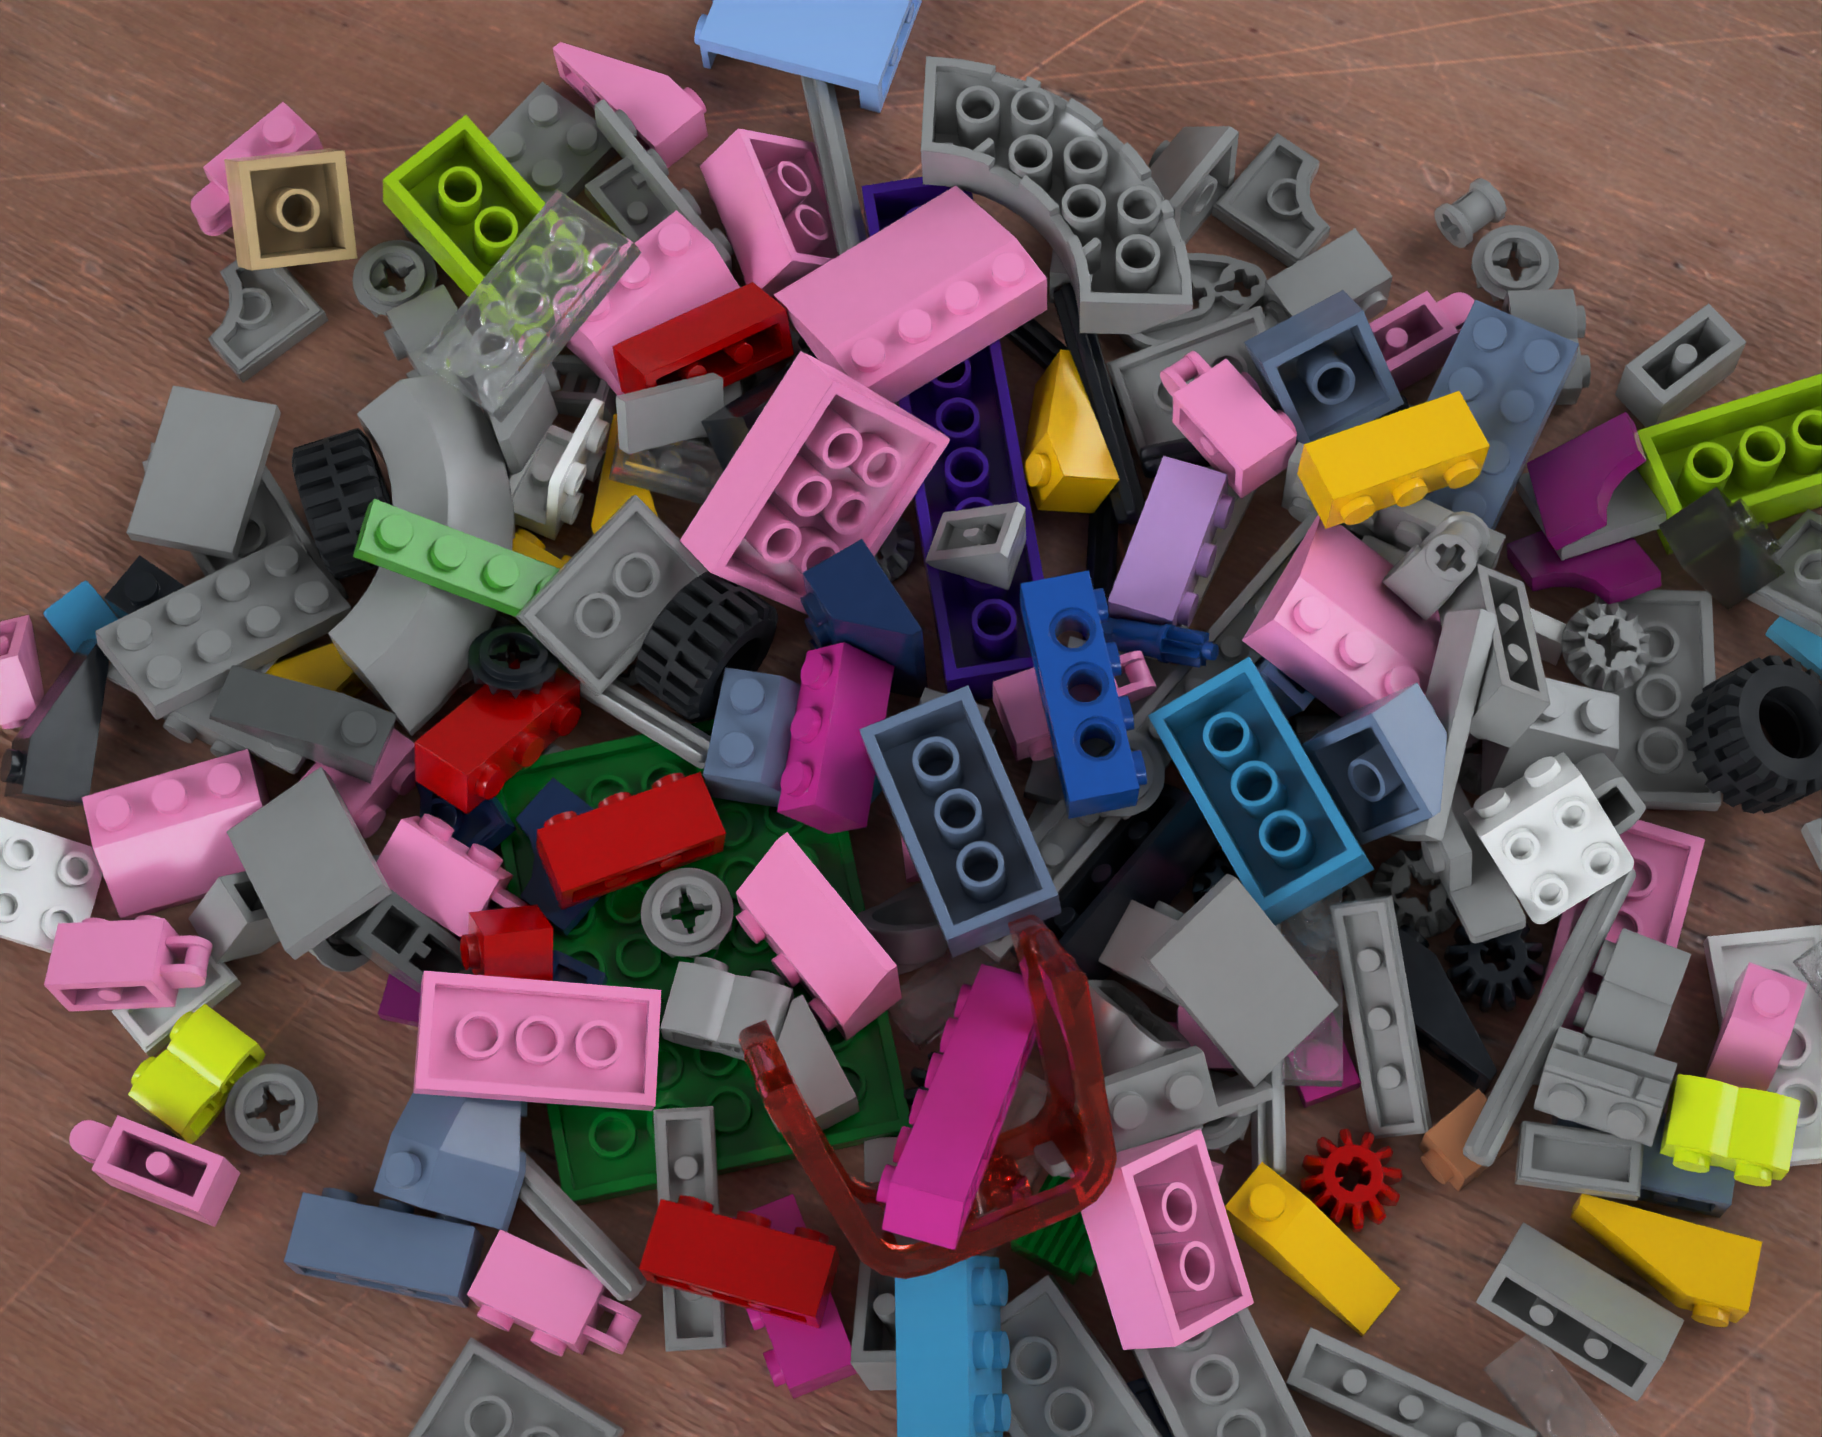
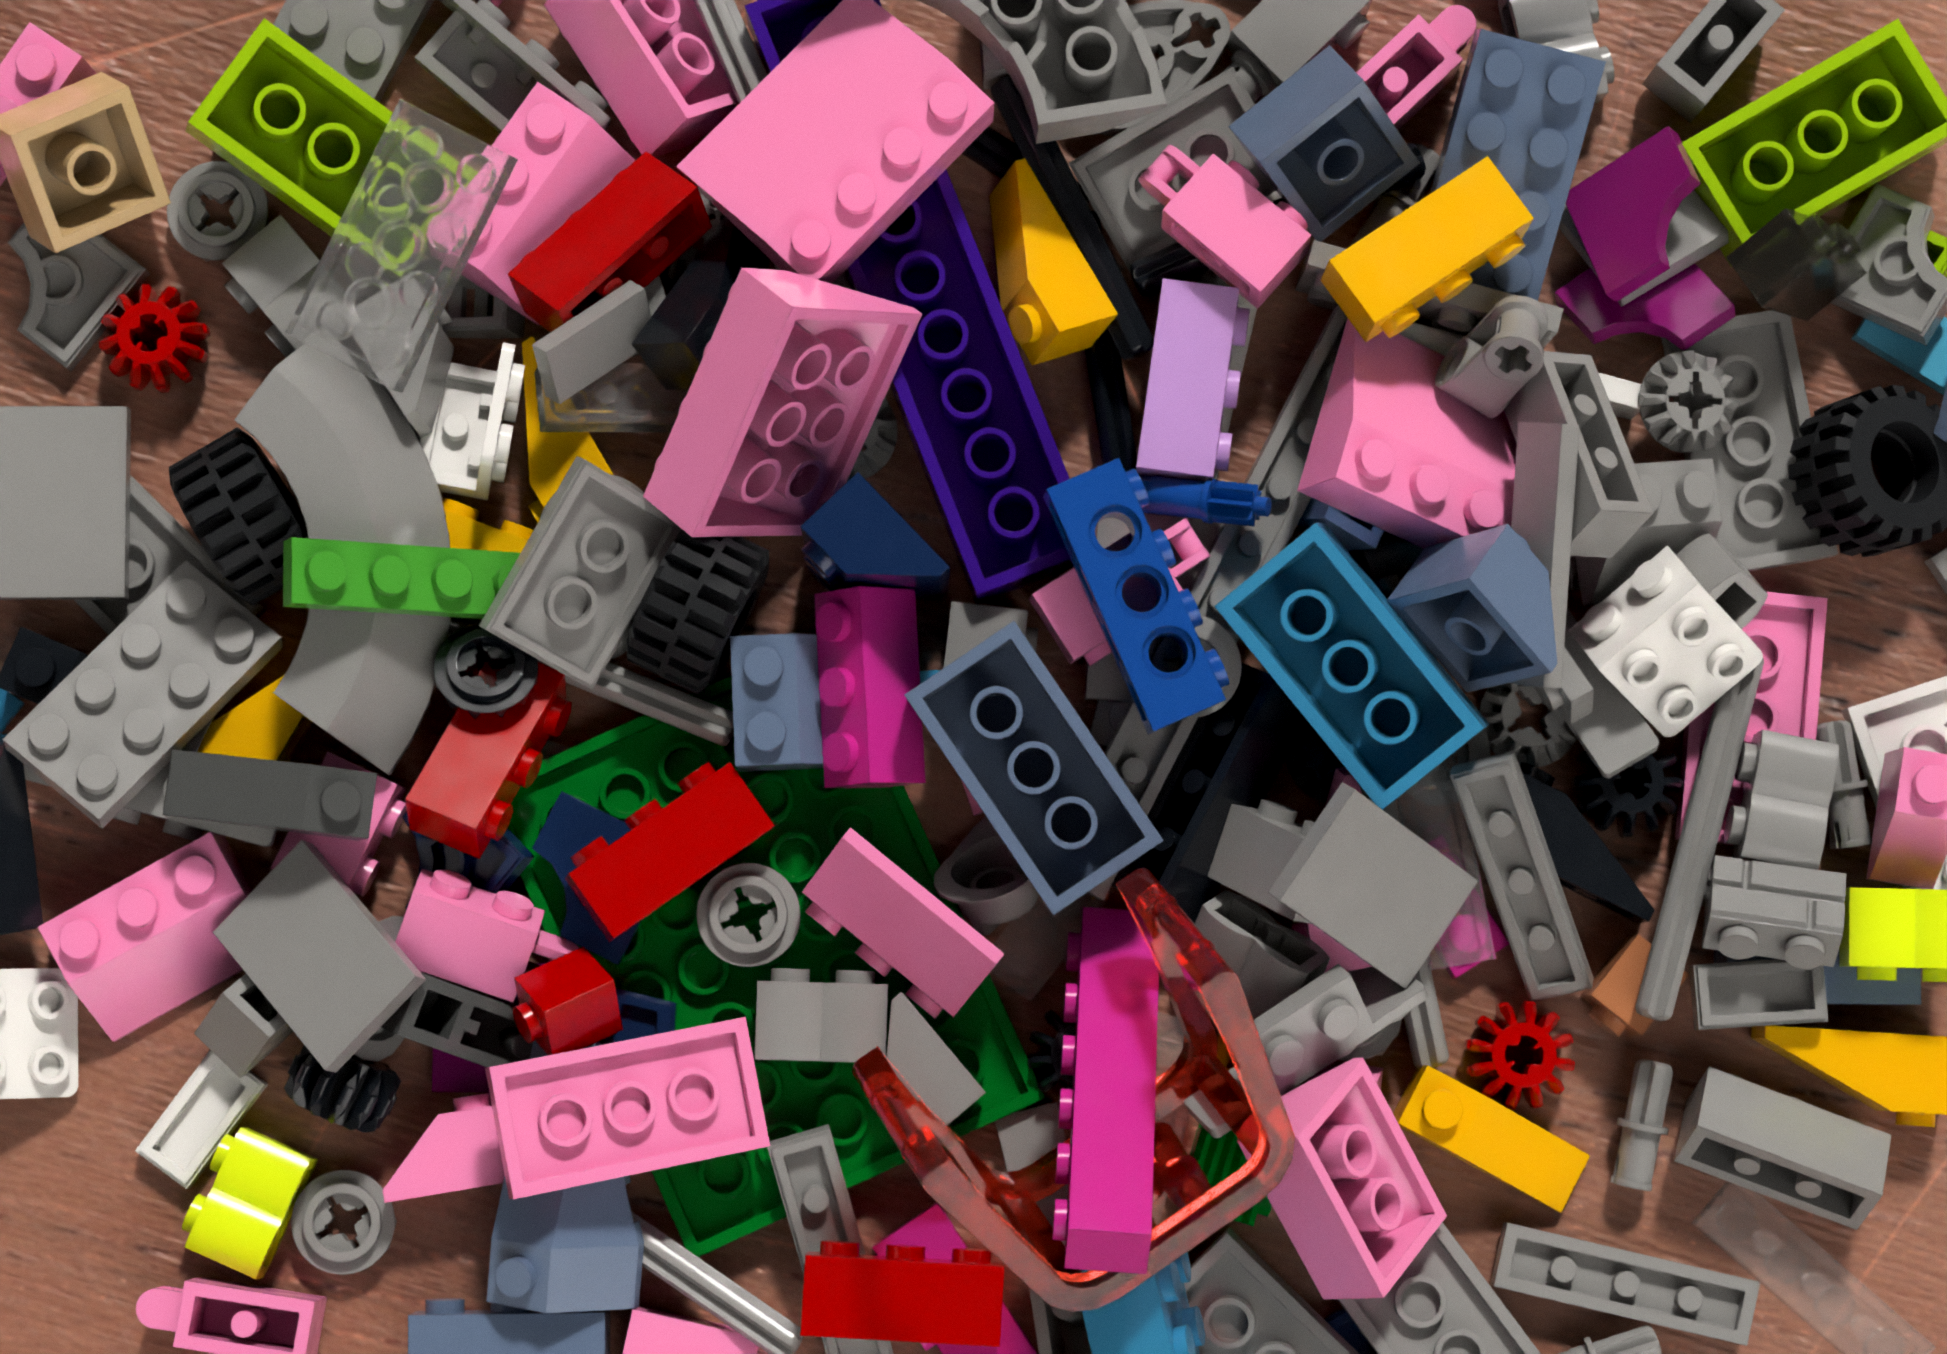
camera: 25 degrees left, 15 degrees up
(124, 964) = (137, 1100): bright pink brick -> none
(301, 987) = (352, 1097): none -> black gear
(316, 363) = (171, 351): none -> red gear
(373, 1070) = (452, 1155): none -> bright pink slope
(980, 543) = (978, 431): light grey slope -> none
(1453, 1268) = (1642, 1125): none -> light grey axle
(1693, 1011) = (1846, 810): none -> light grey axle

